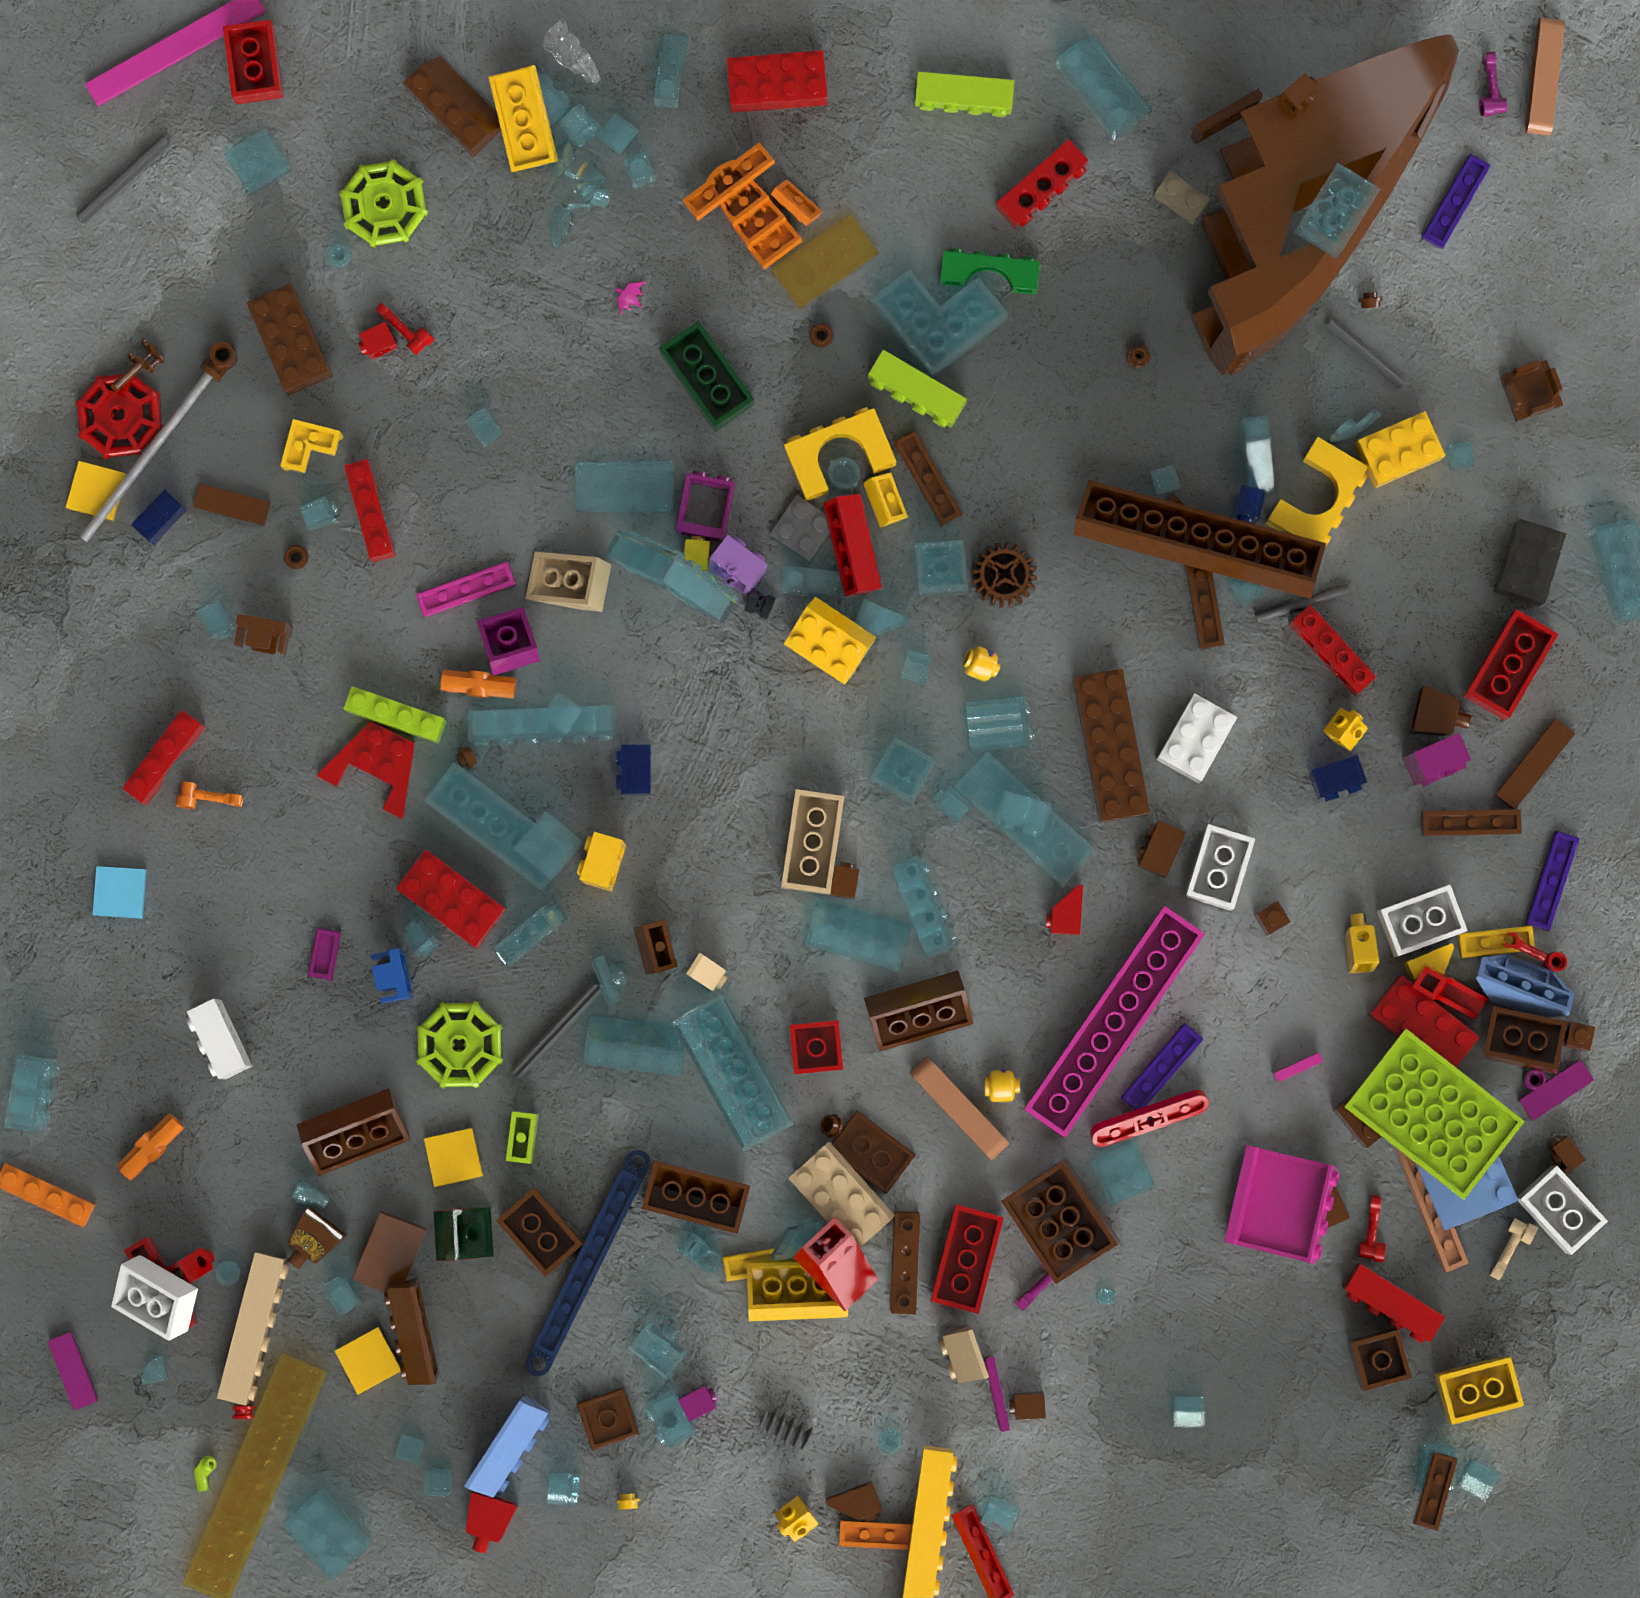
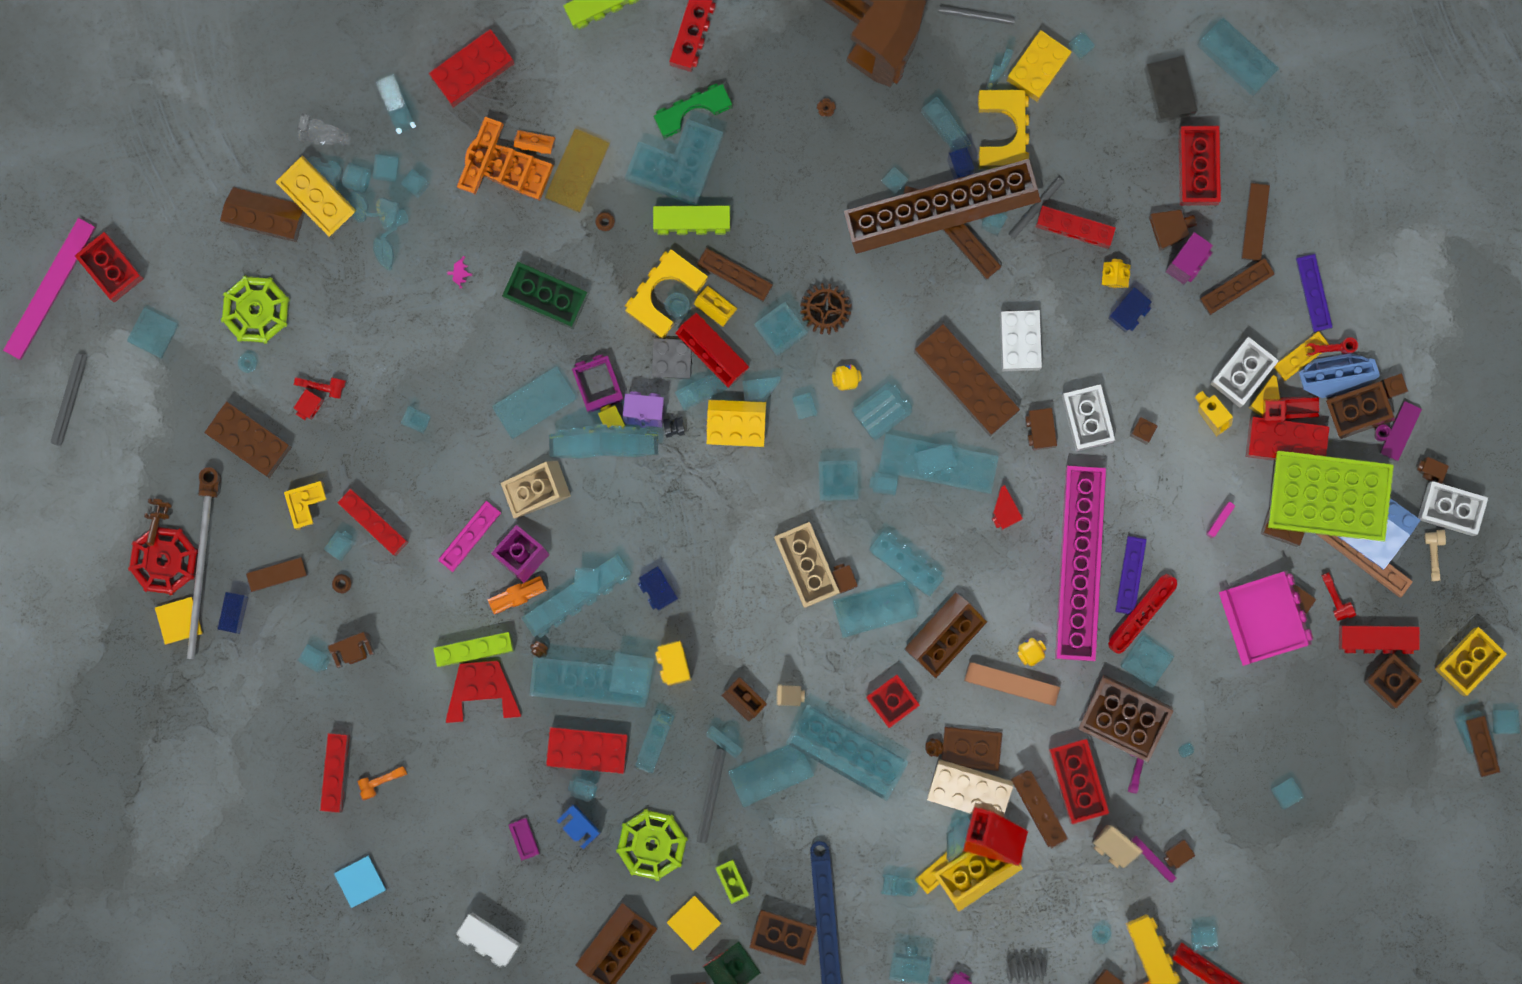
camera: 25 degrees left, 0 degrees up
(695, 1197) = (873, 850): reddish brown slope -> none

